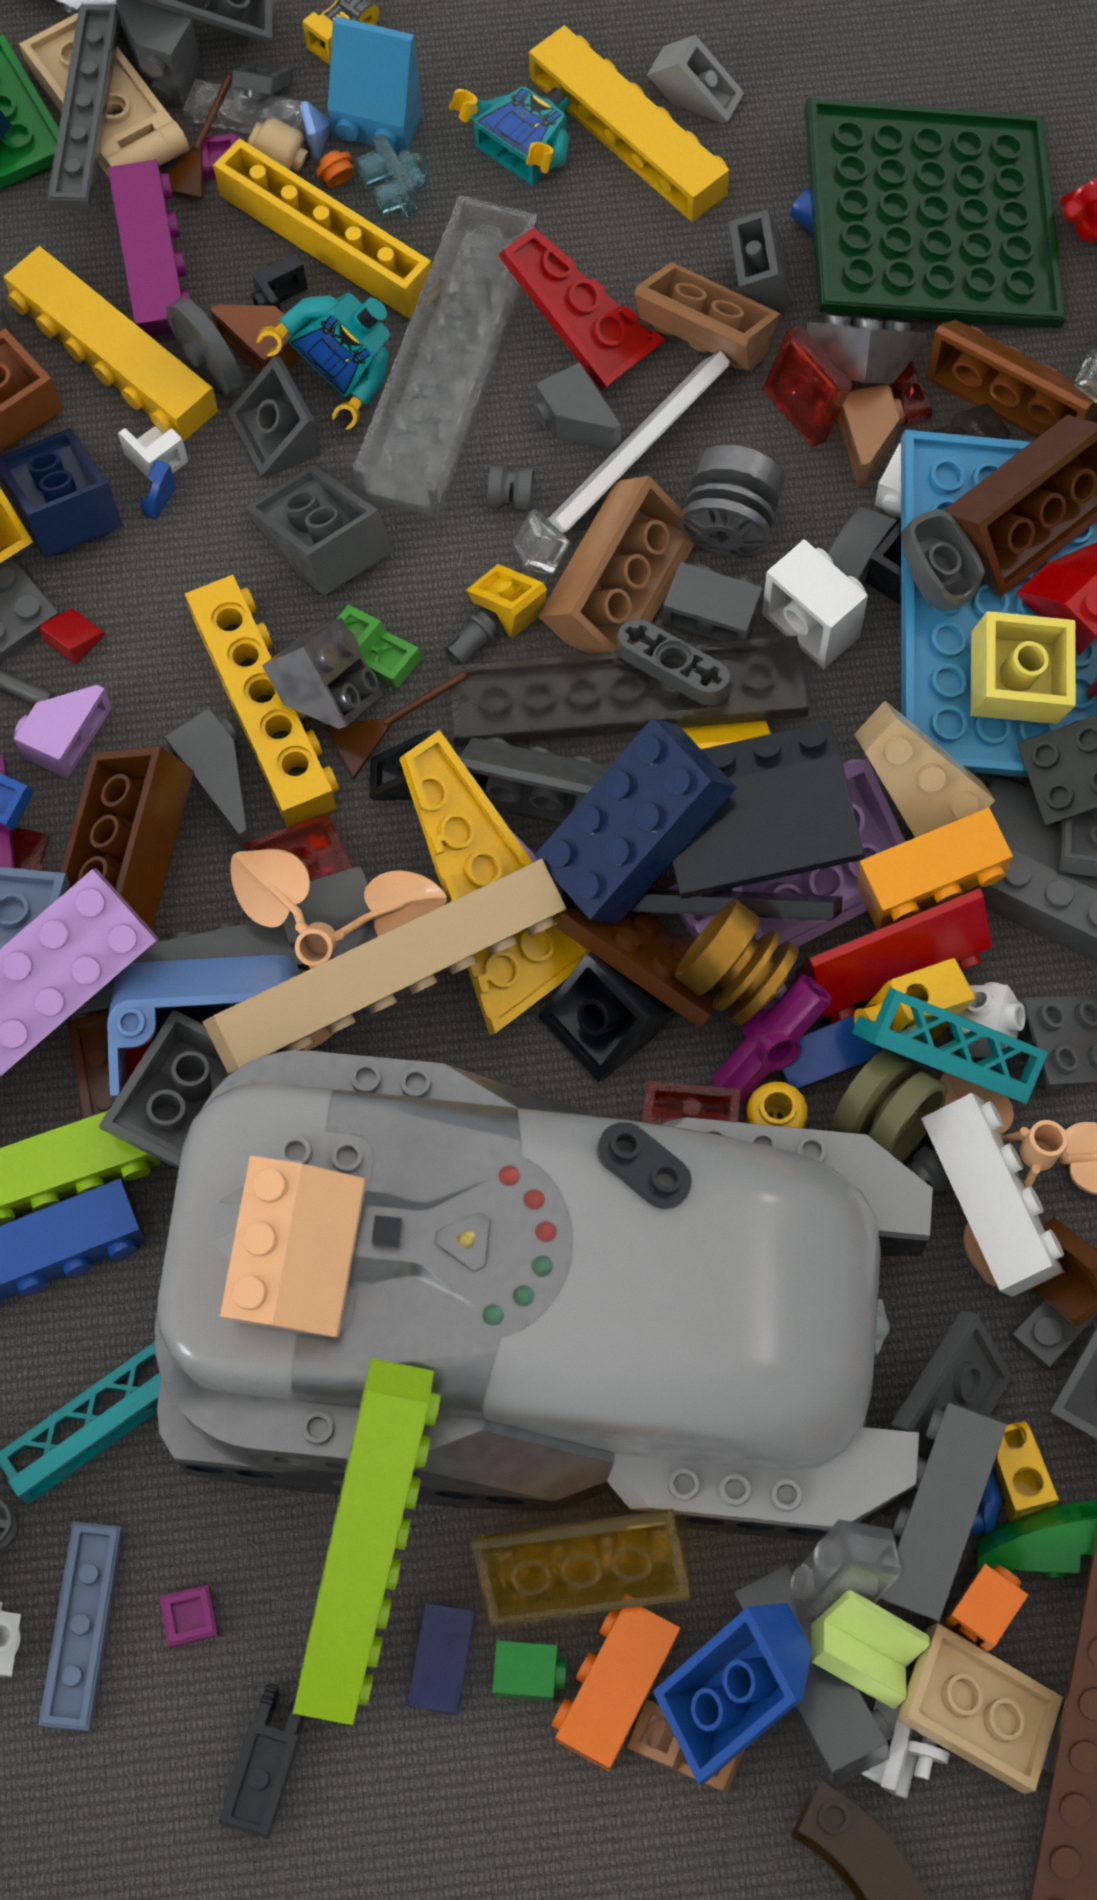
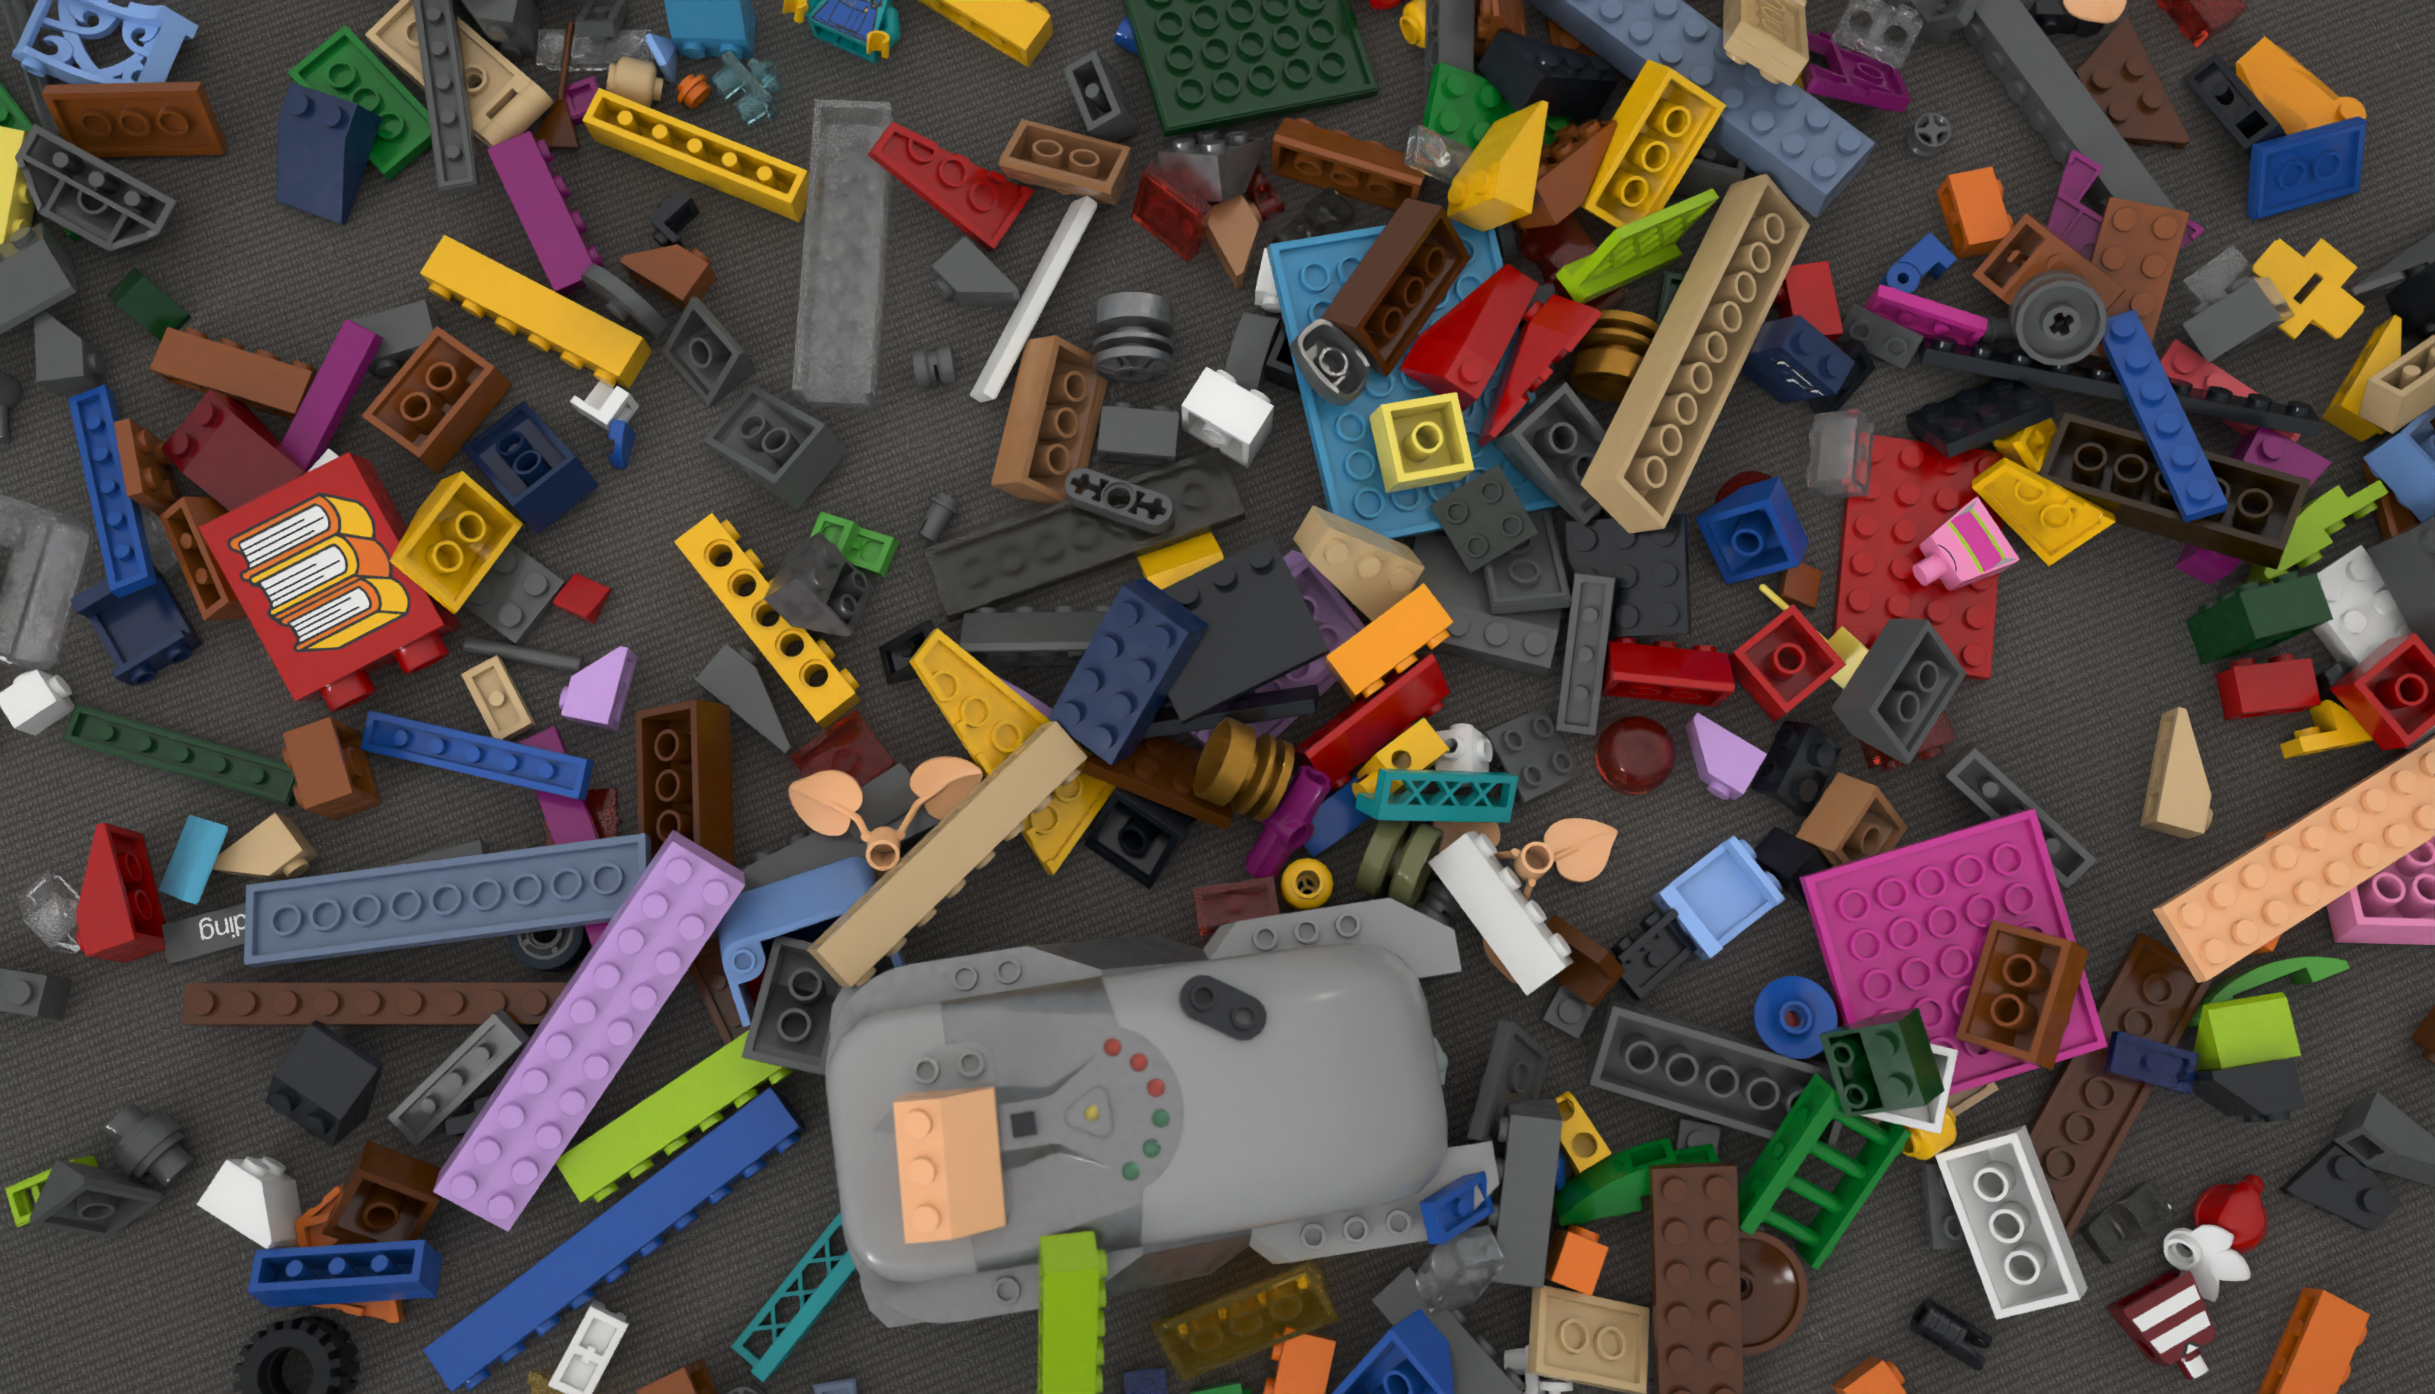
camera: 20 degrees left, 10 degrees up
(341, 342) = (747, 268): torso -> none
(361, 738) = (869, 627): reddish brown piece -> none
(511, 596) = (959, 470): yellow slope -> none
(540, 544) = (974, 414): clear slope -> none
(856, 1491) = (1452, 1208): none -> blue plate
(866, 1647) = (1489, 1323): yellowish green panel -> none

